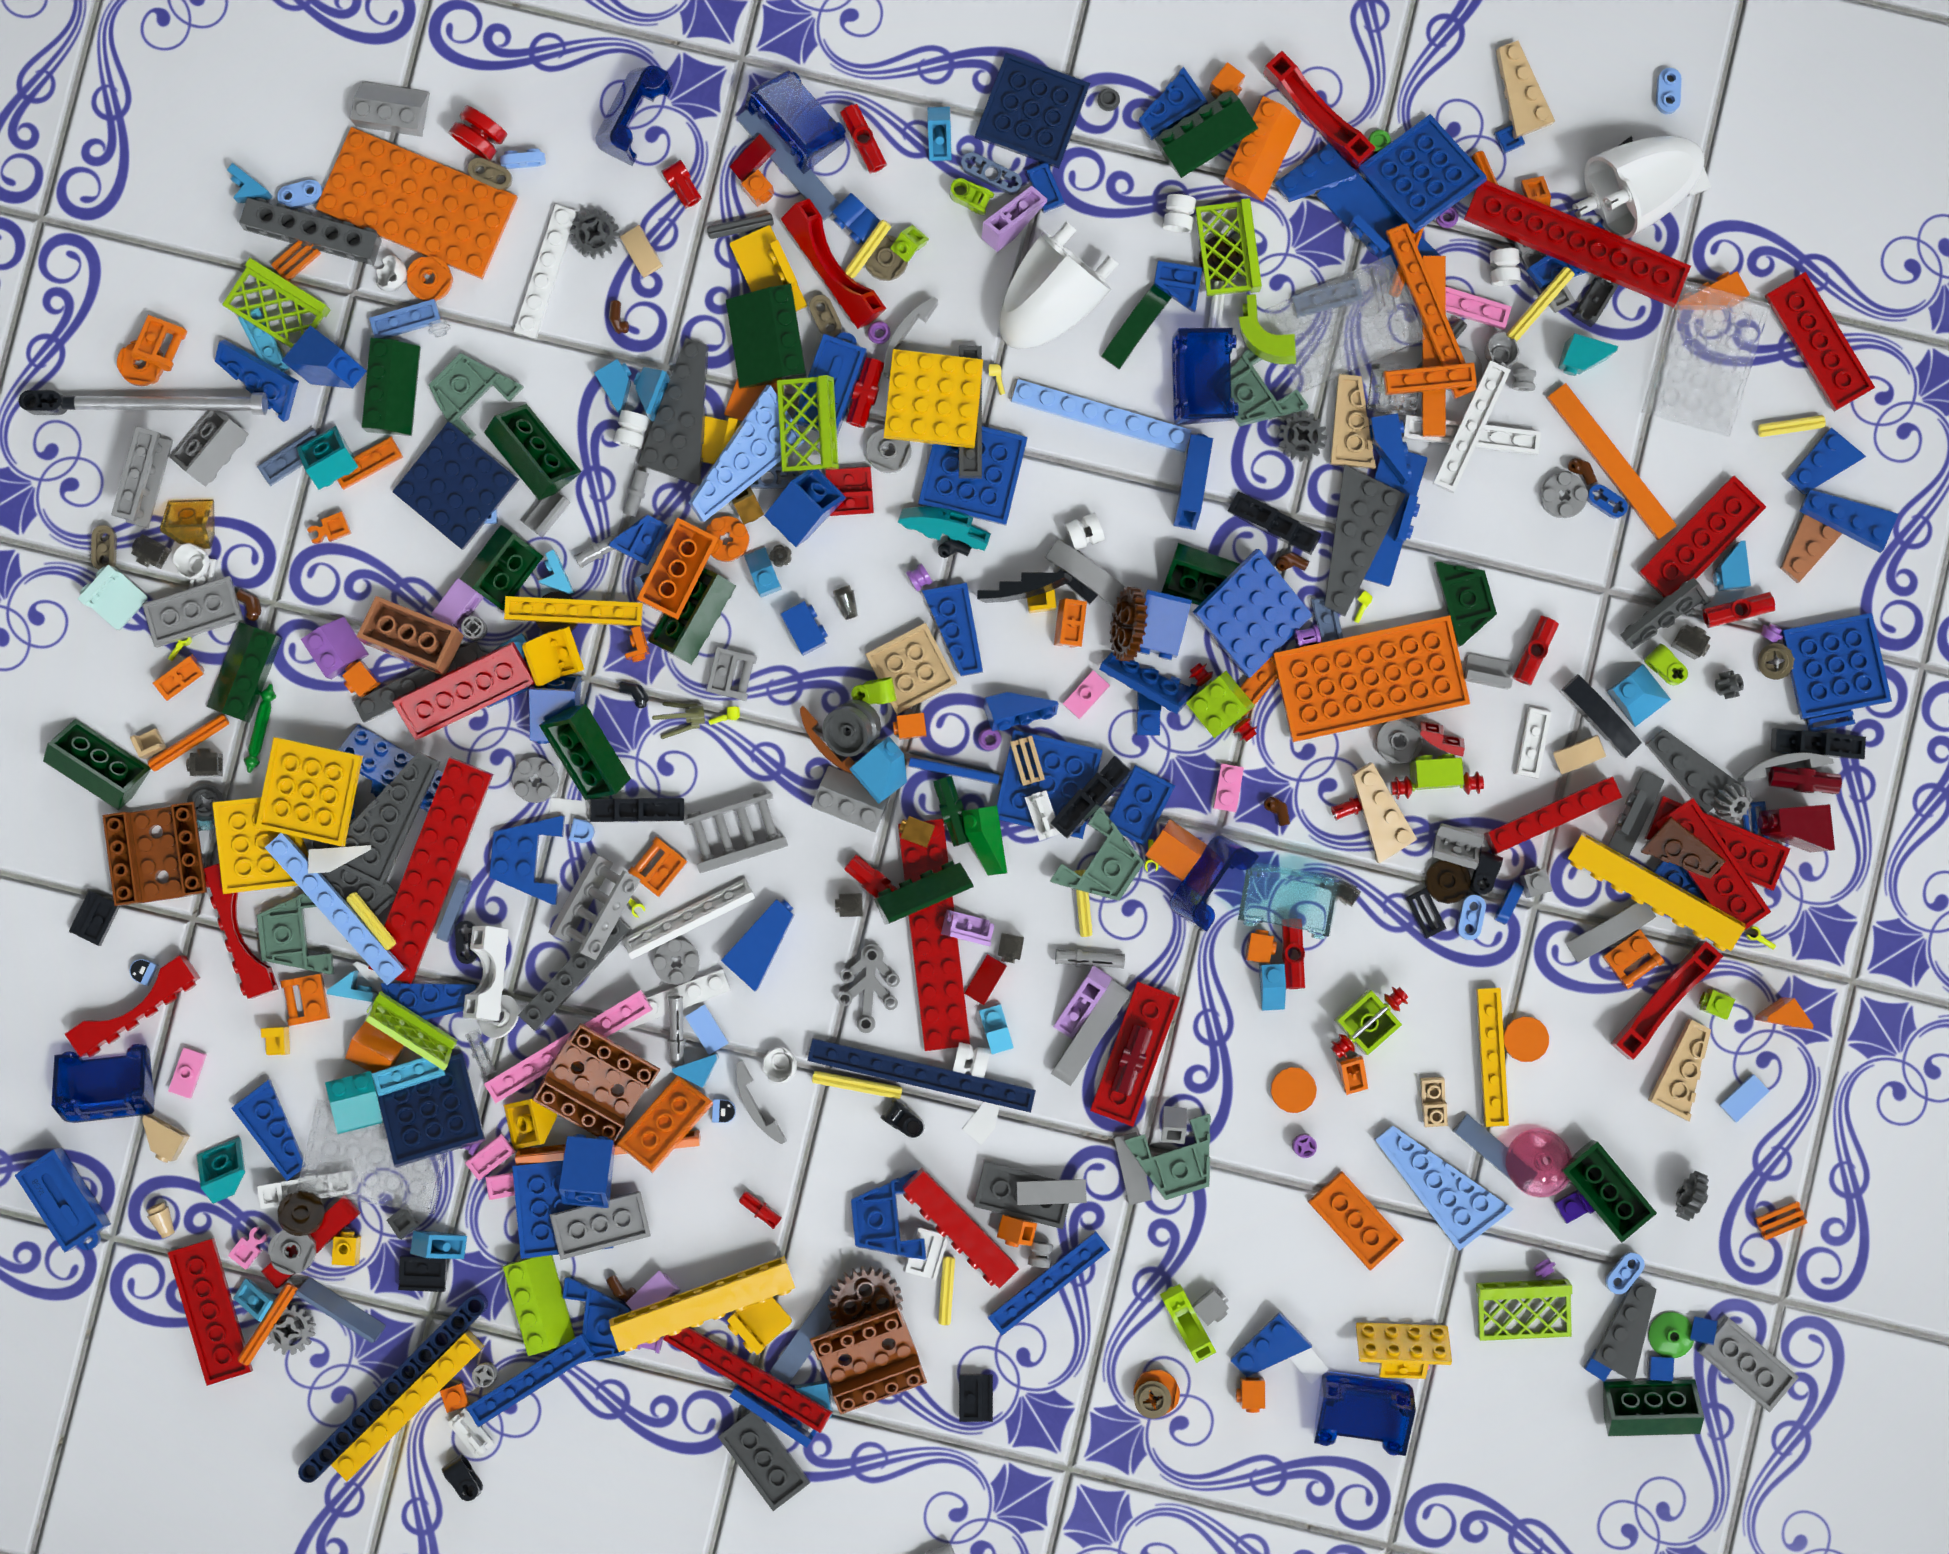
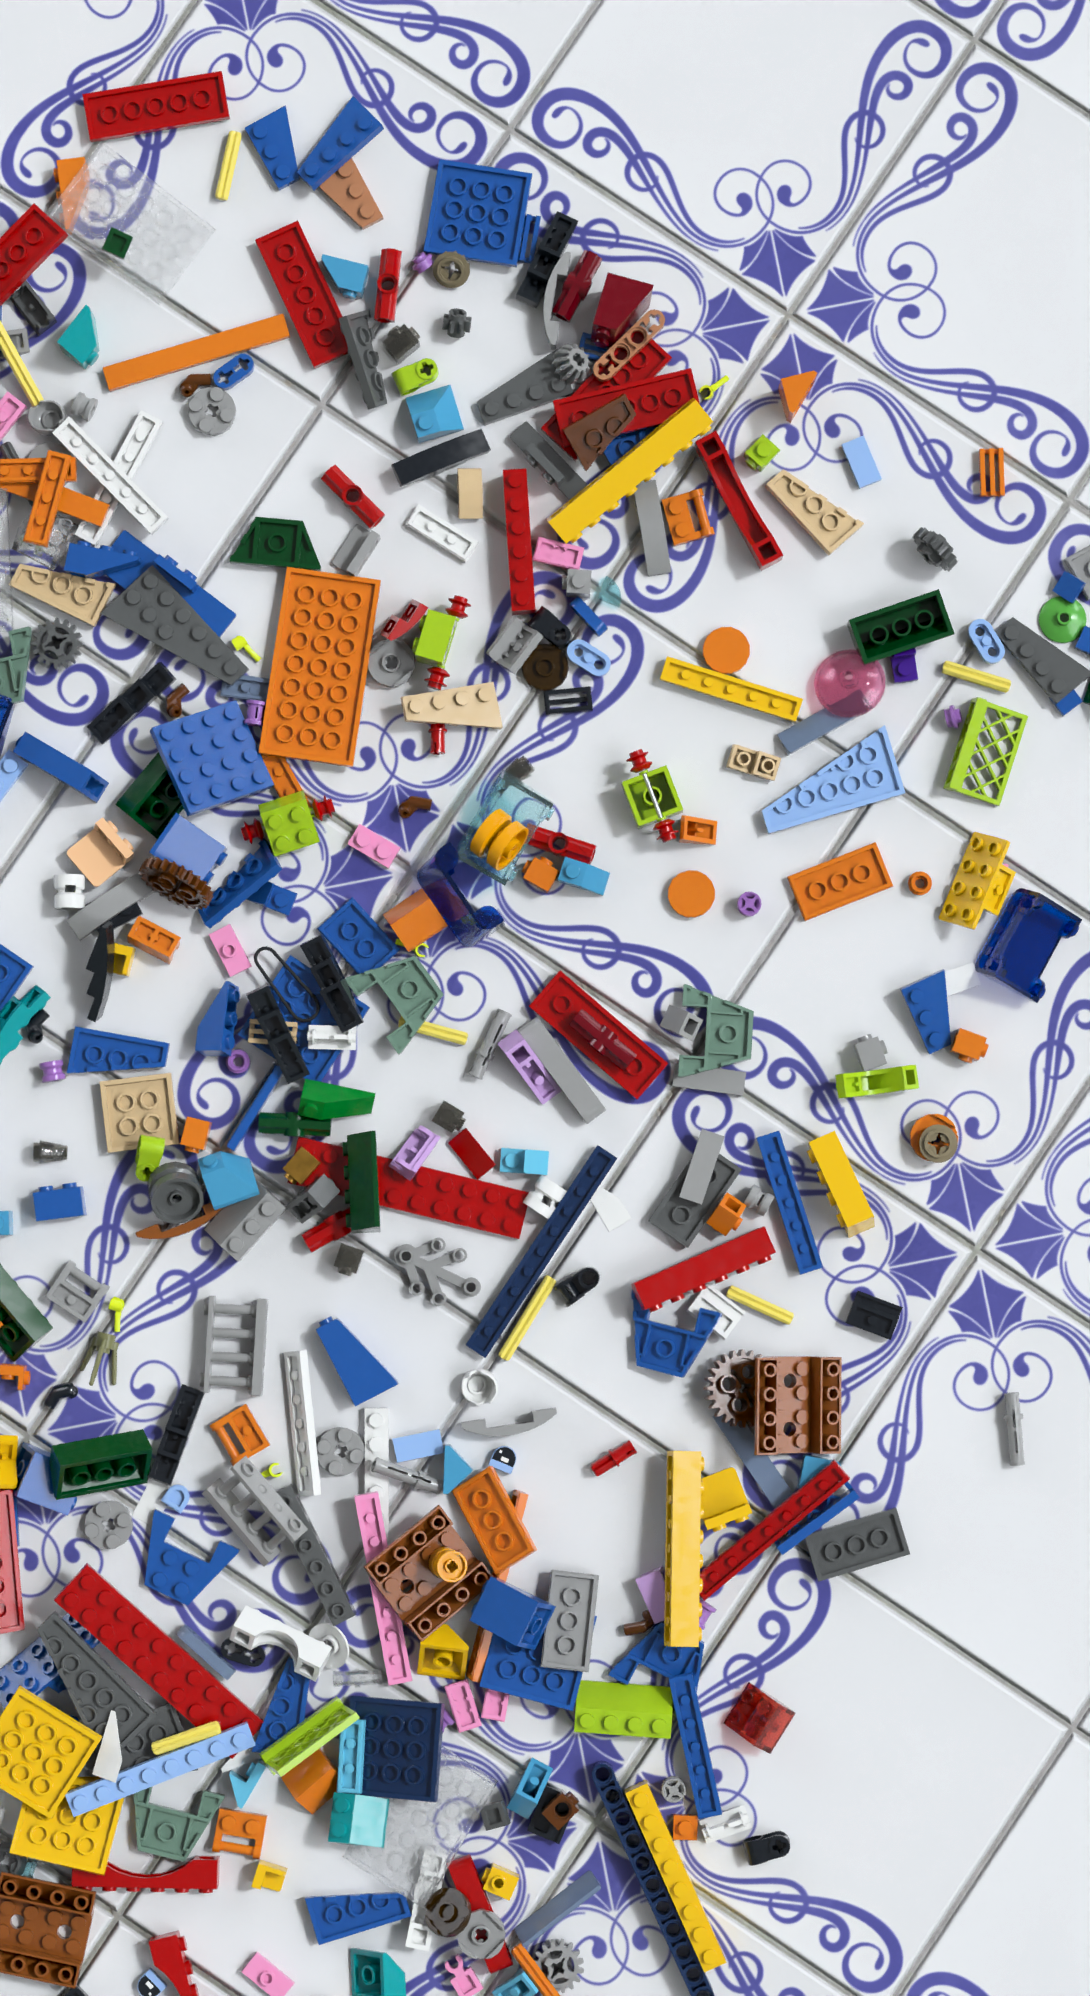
camera: 65 degrees left, 0 degrees up
(419, 1280) = (556, 1819): none -> reddish brown brick
(576, 1428) = (759, 1718): none -> clear red slope
(610, 1097) = (448, 1564): none -> light orange wheel
(892, 853) = (313, 1198): none -> dark grey brick
(1027, 765) = (277, 1033): none -> black slope
(1065, 750) = (276, 990): none -> black piece
(1083, 1325) = (841, 1183): none -> yellow wedge
(1130, 546) = (101, 853): none -> light nougat bracket
(1277, 899) = (499, 839): none -> light orange wheel
(1388, 1294) = (925, 878): none -> orange plate
(1538, 914) = (610, 592): none -> clear light blue tile
(1555, 854) = (558, 554): none -> bright pink plate
(1589, 1275) = (976, 676): none -> light yellow axle
(1684, 353) = (117, 243): none -> dark green tile
(1769, 847) = (626, 343): none -> nougat beam

